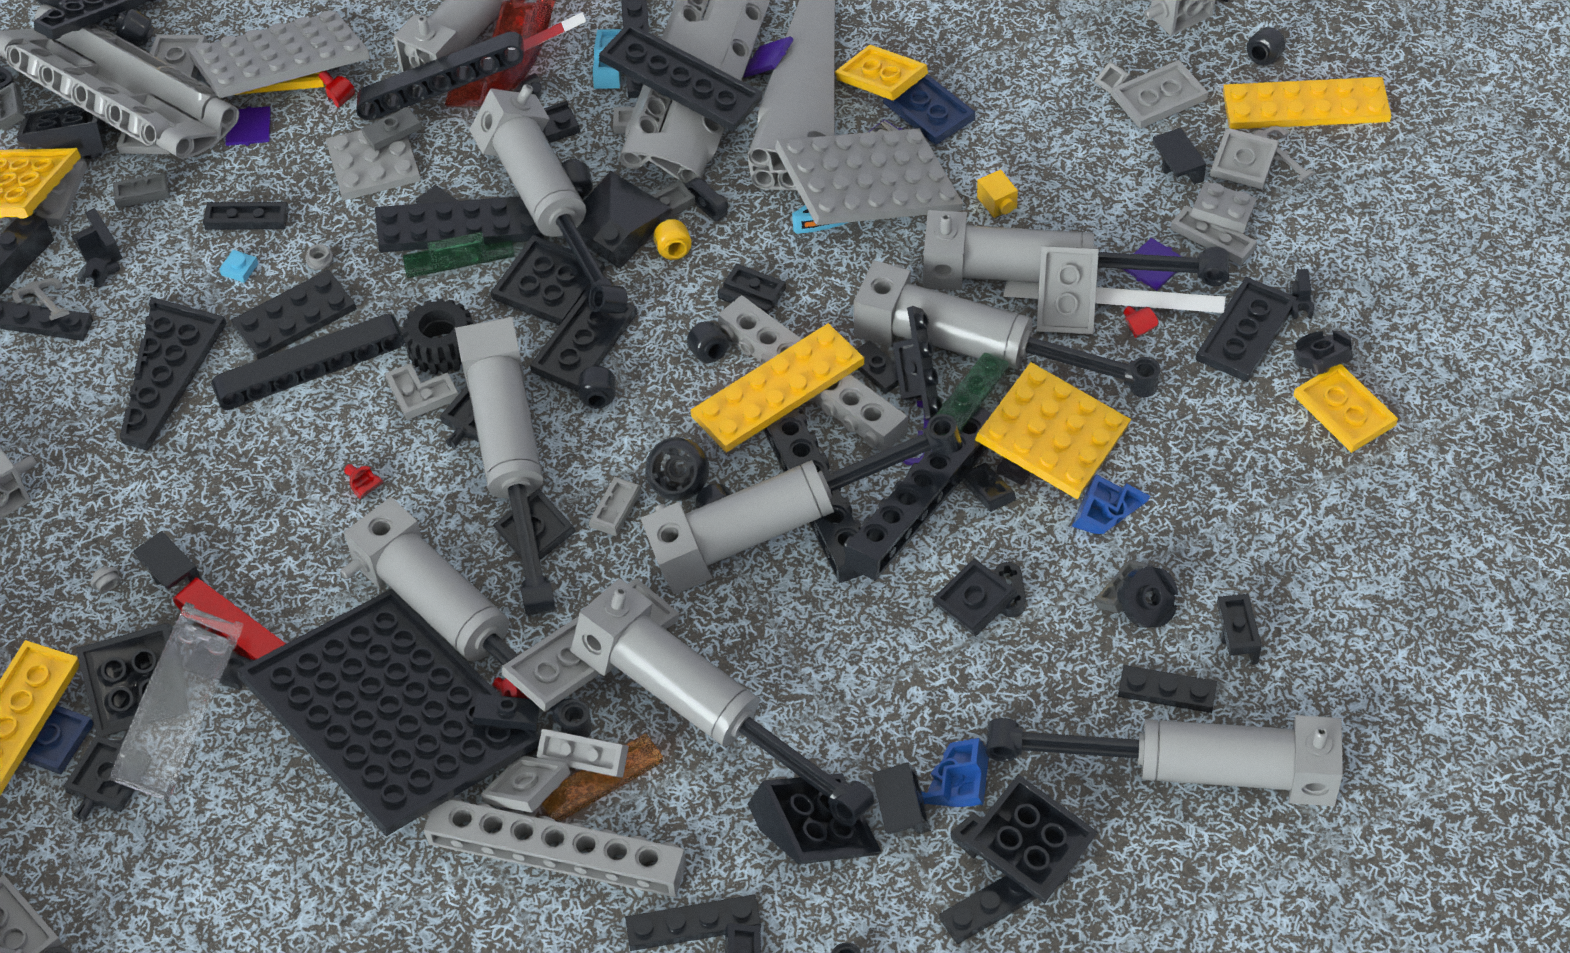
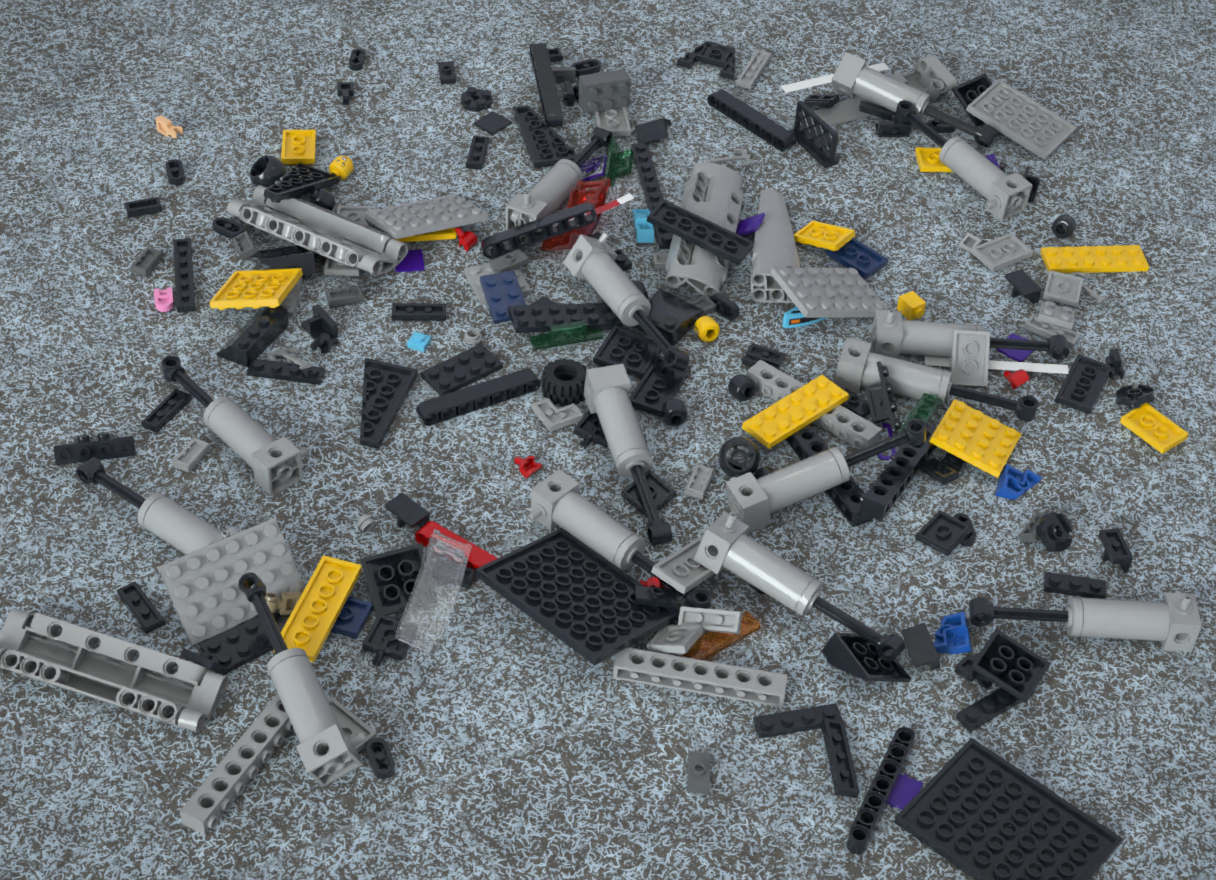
camera: 10 degrees left, 10 degrees down
(371, 182) = (501, 292): none -> dark blue plate

